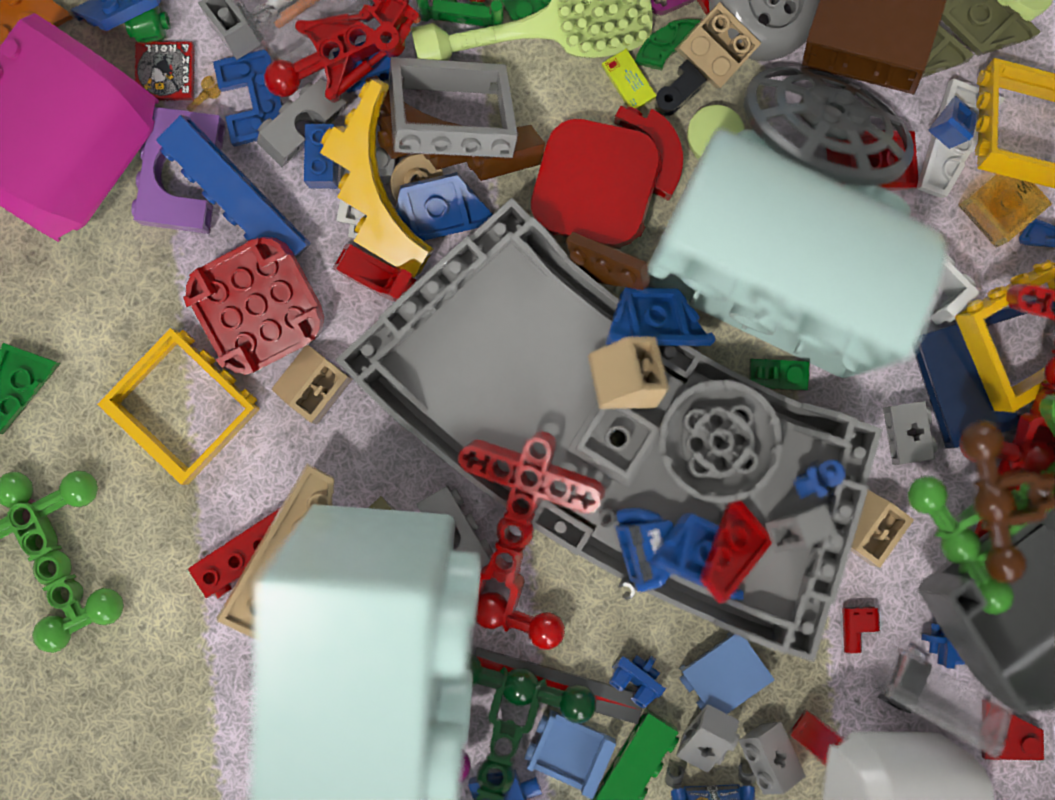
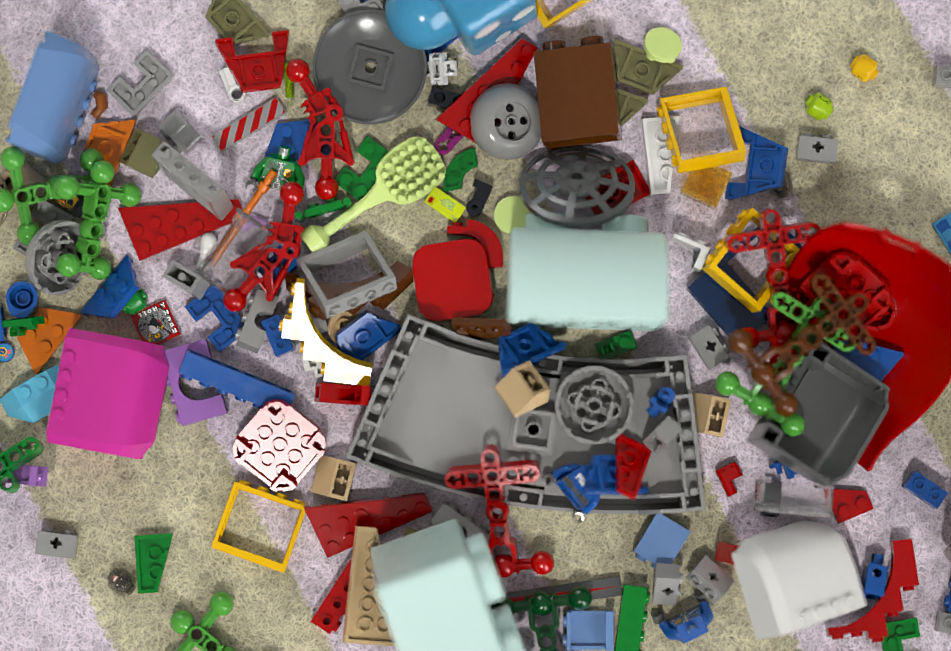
camera: 25 degrees left, 0 degrees up
(207, 92) = (187, 327): clear yellow hand -> none
(285, 446) = (337, 522): none -> red wing
(627, 672) = (609, 564): blue hips -> none
(713, 50) = (488, 167): tan slope -> none
(954, 124) = (654, 147): blue slope -> none

